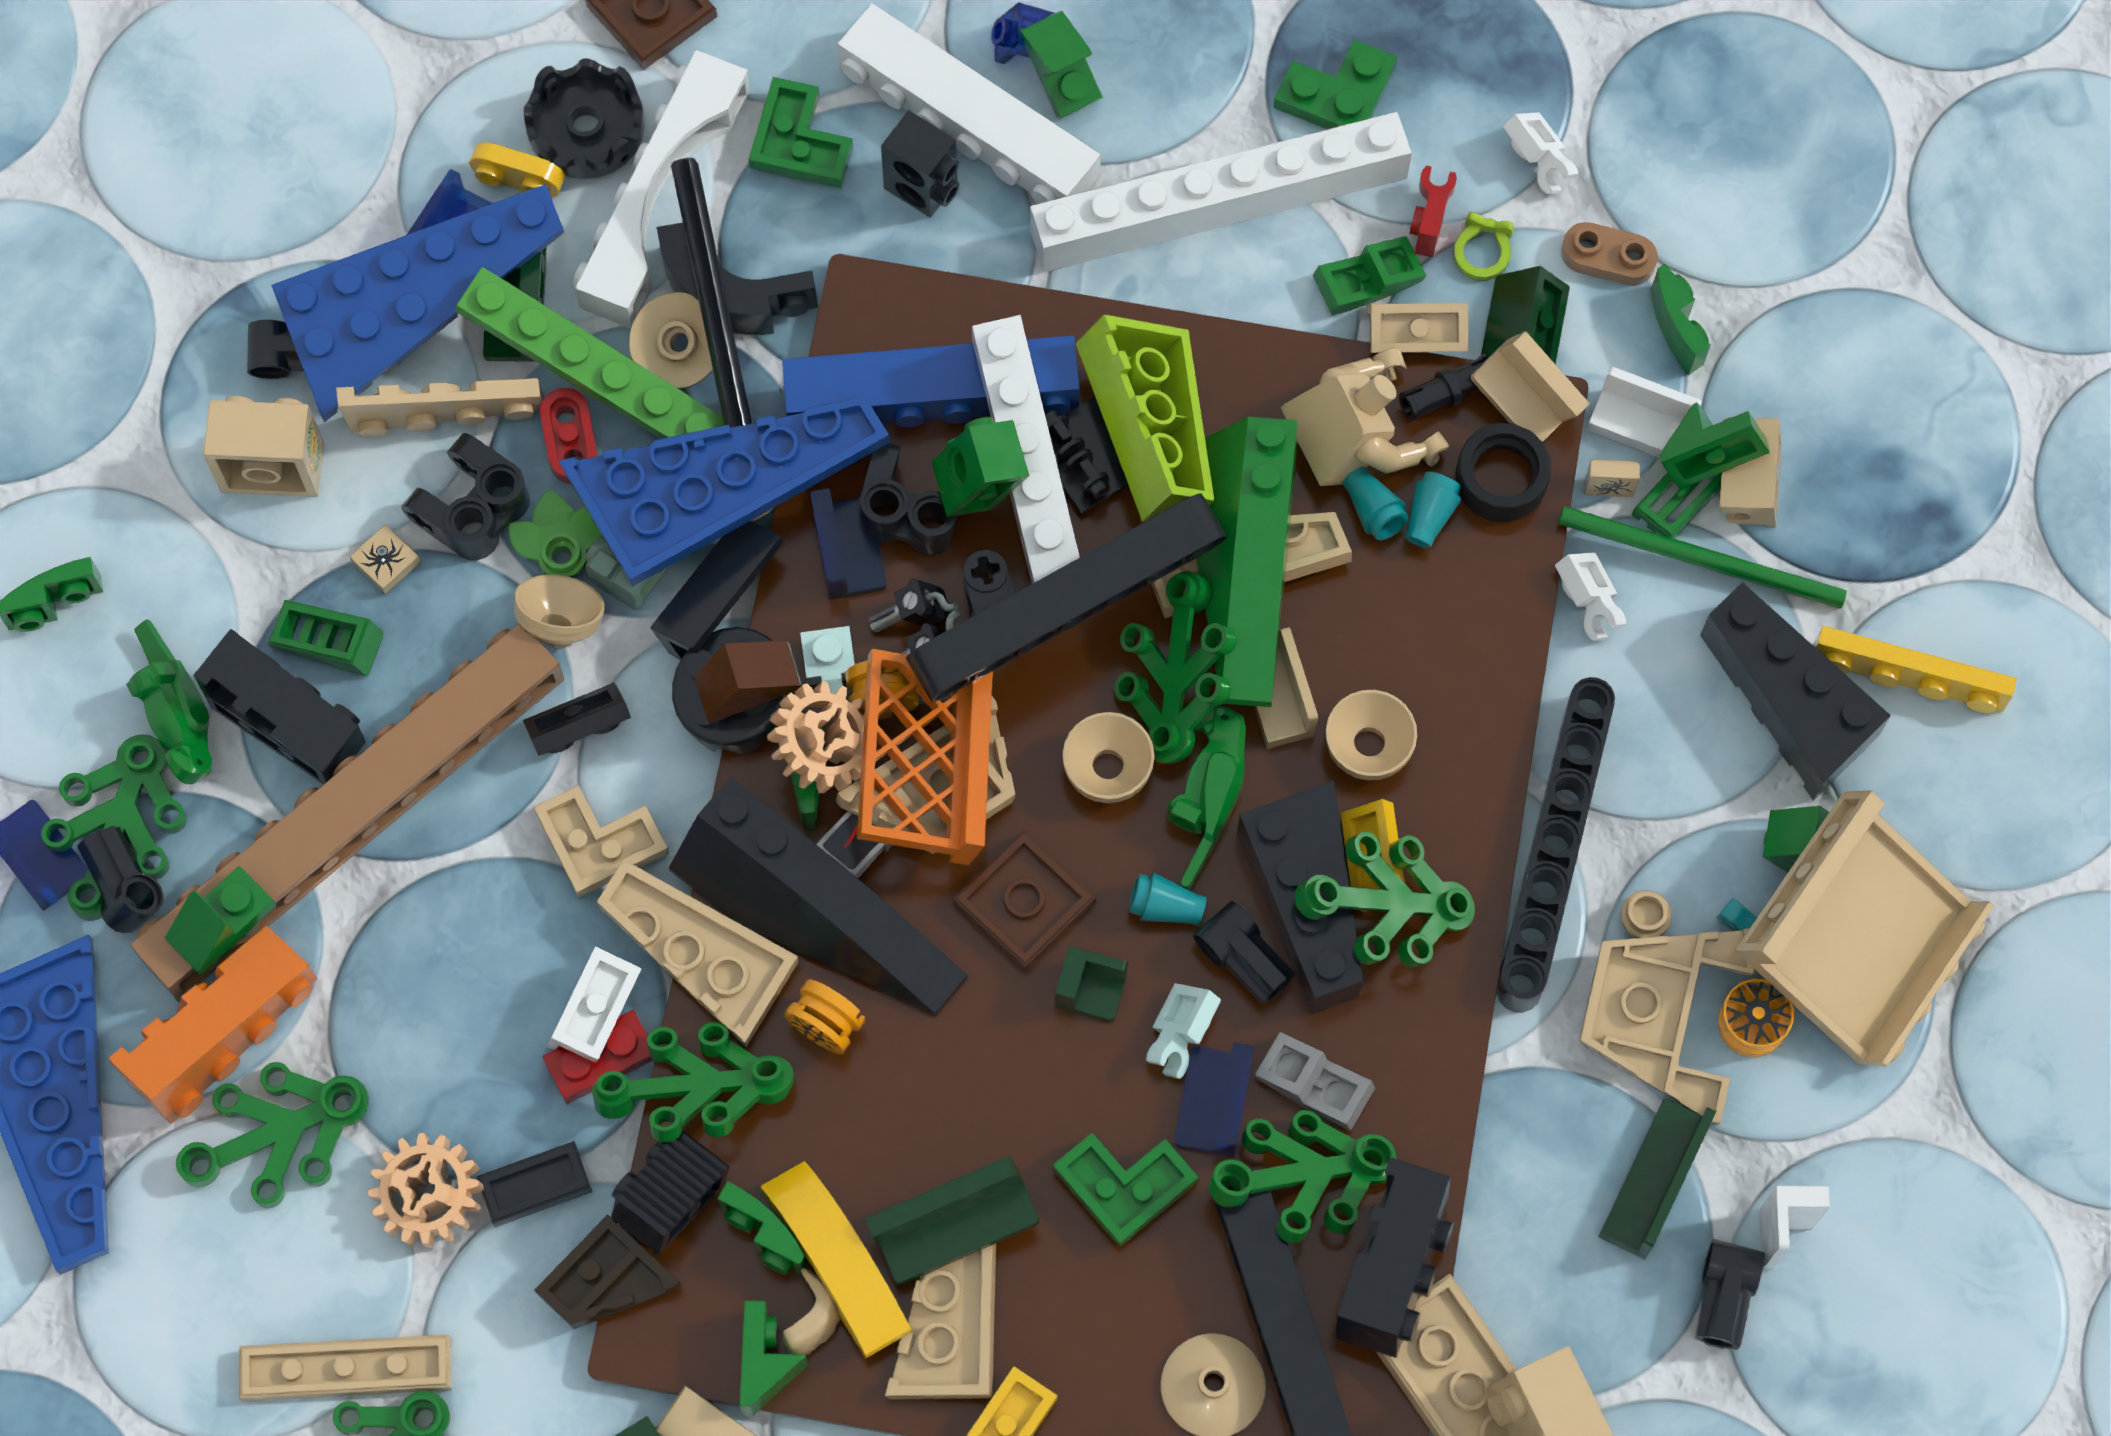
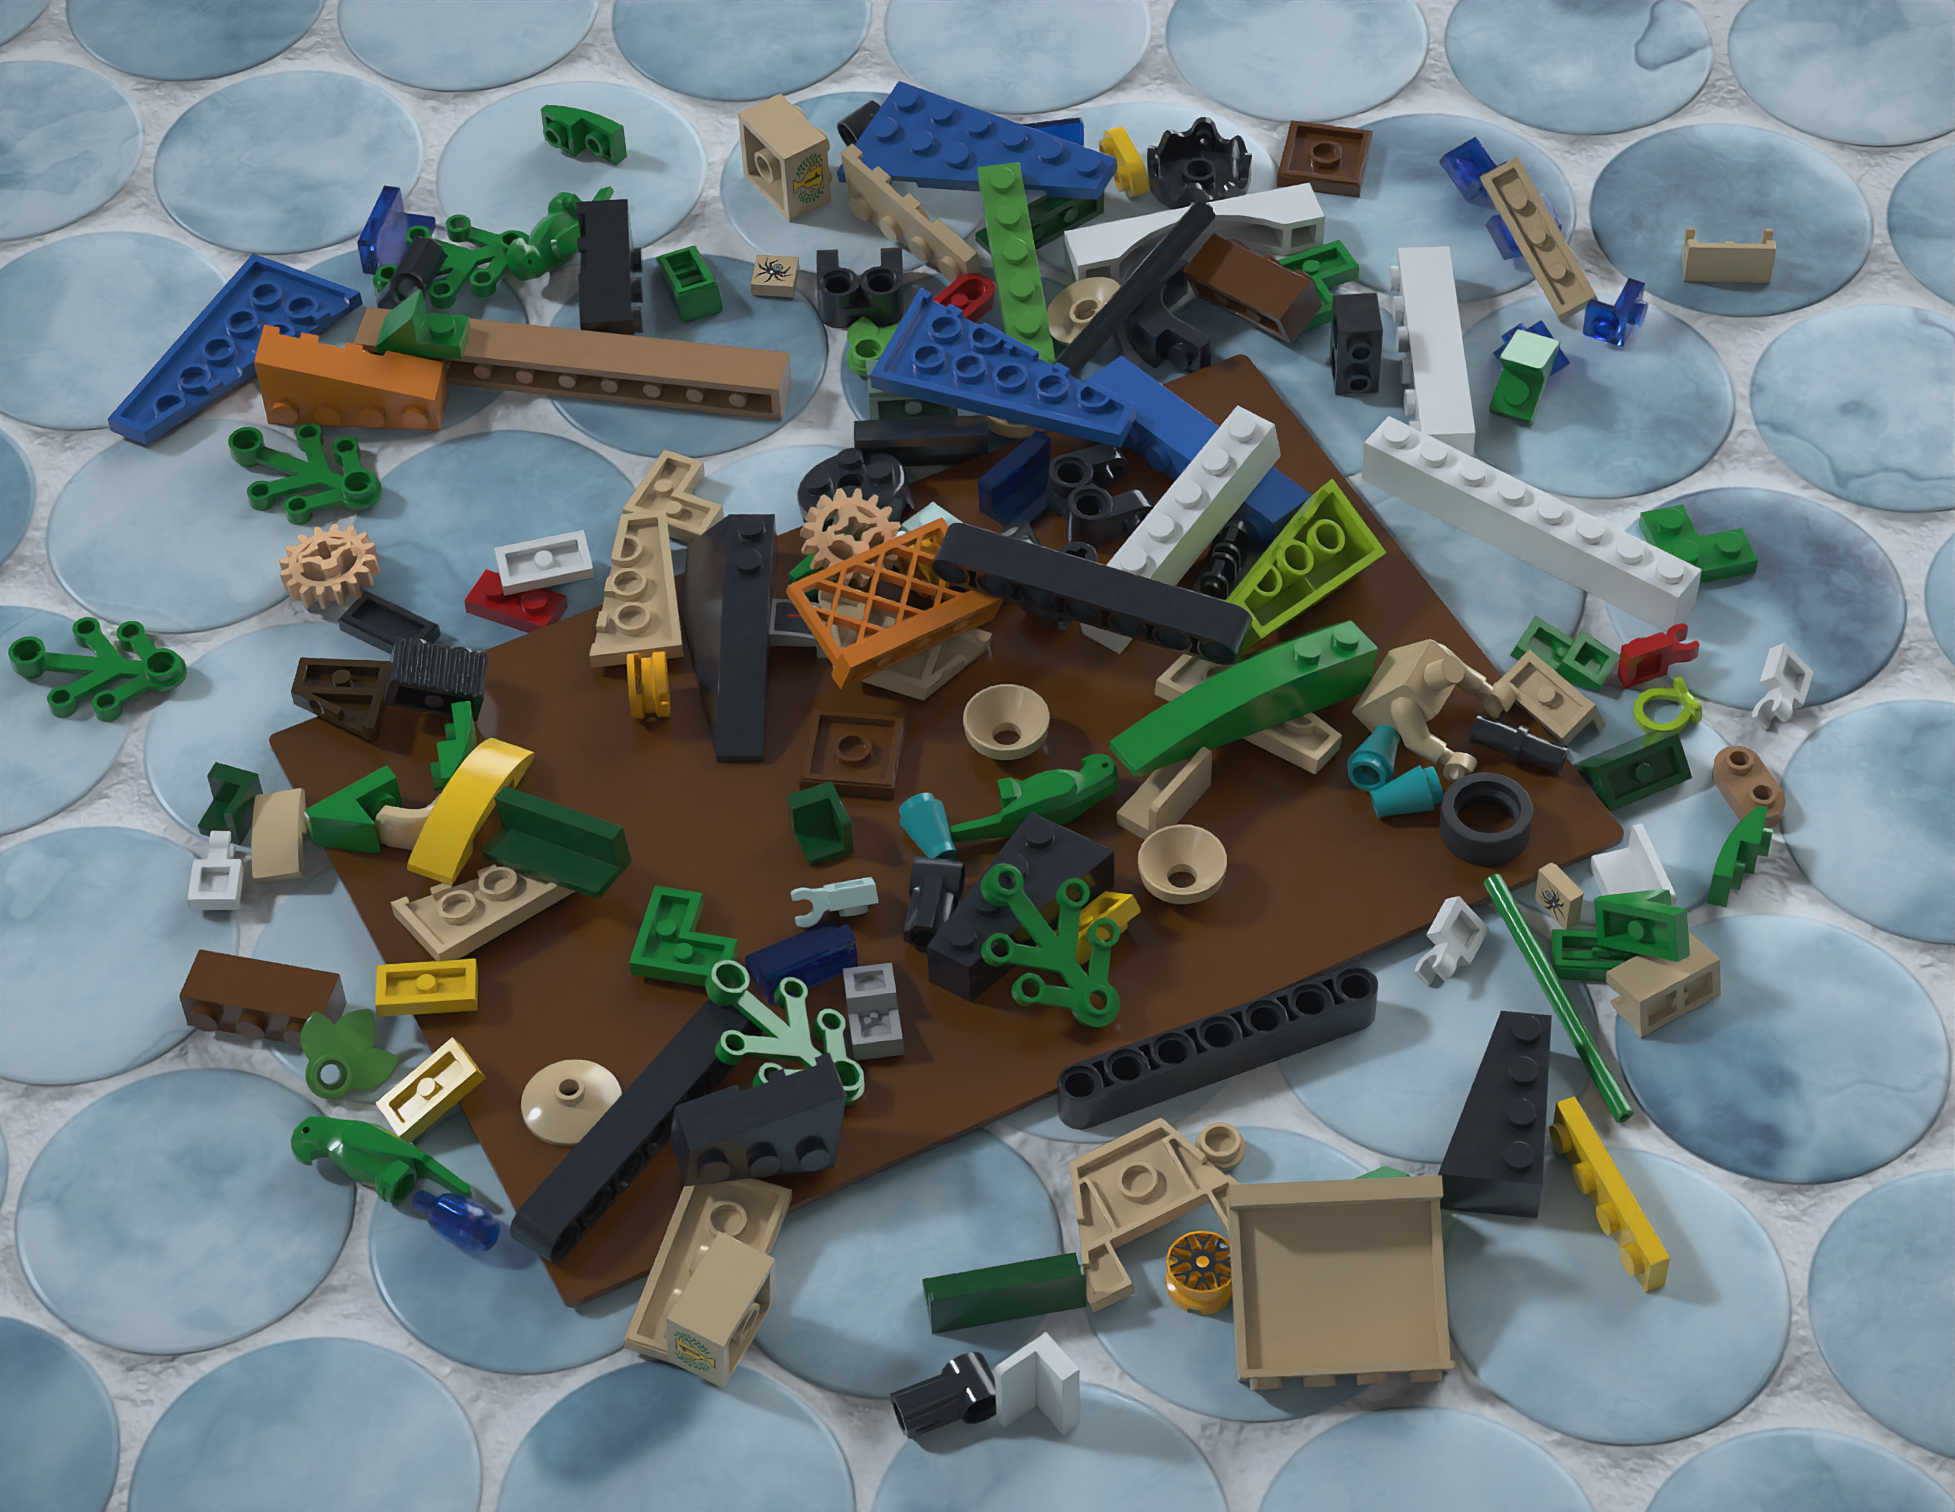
camera: 55 degrees right, 20 degrees down
(345, 1368) = (167, 612): tan tile -> none
(559, 602) = (820, 371): tan piece -> none
(580, 717) = (738, 430): black plate -> none
(746, 677) = (859, 466): reddish brown slope -> none
(755, 1080) = (570, 683): green plant -> none
(777, 188) = (1253, 287): none -> reddish brown brick
(980, 467) = (1140, 485): green brick -> none
(1177, 673) = (1106, 723): green plant -> none
(1528, 387) = (1565, 787): tan panel -> none

